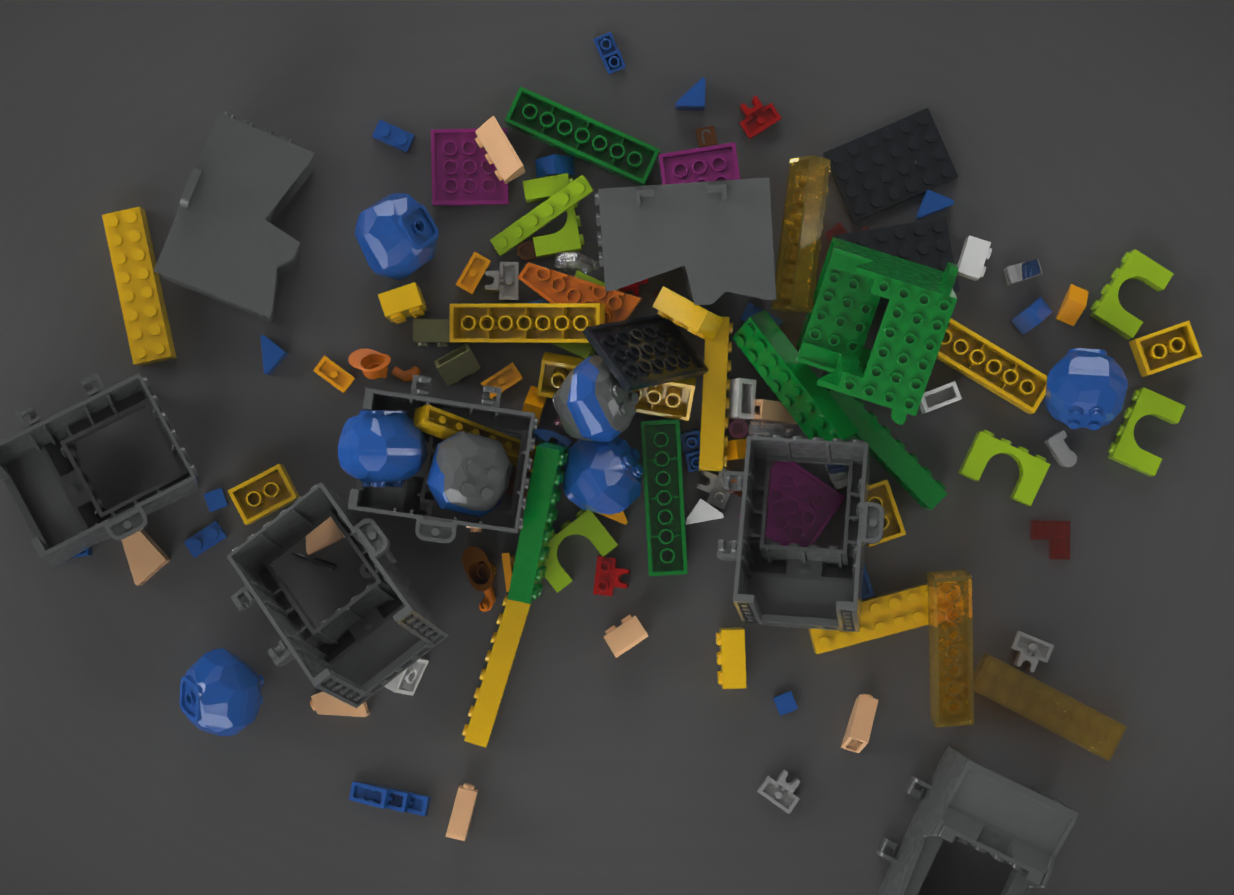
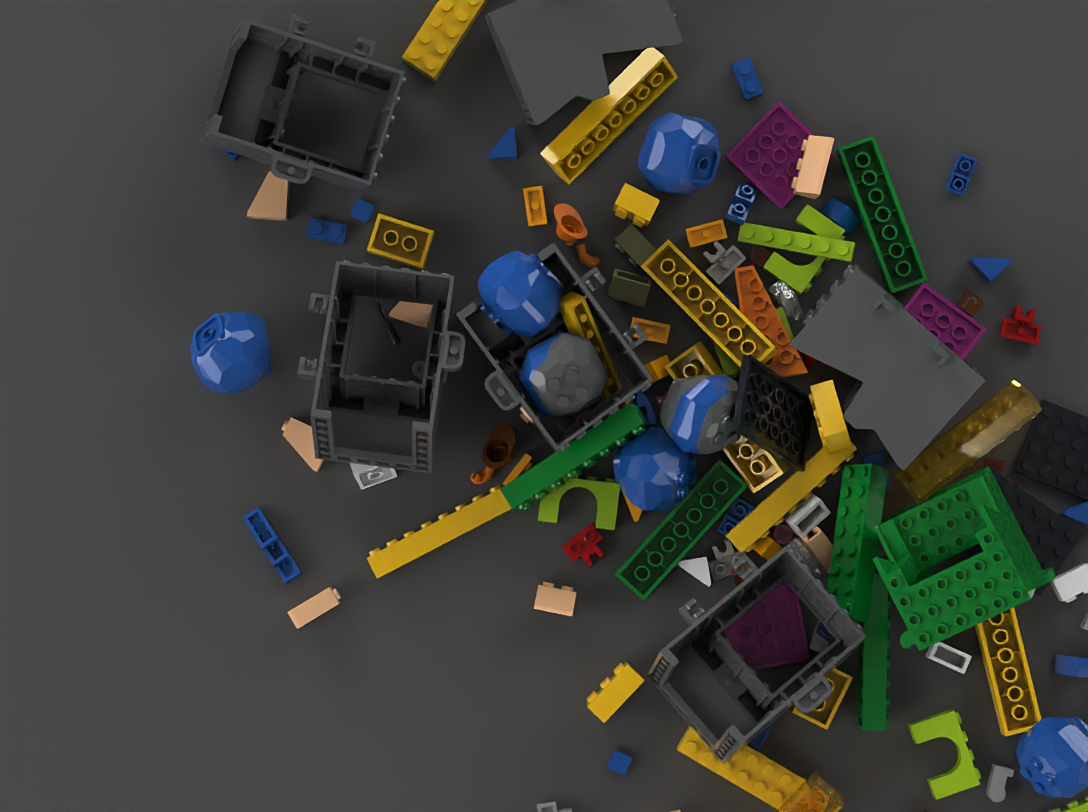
camera: 40 degrees right, 0 degrees up
(320, 258) = (610, 115): none -> yellow brick
(476, 227) = (741, 203): none -> blue slope

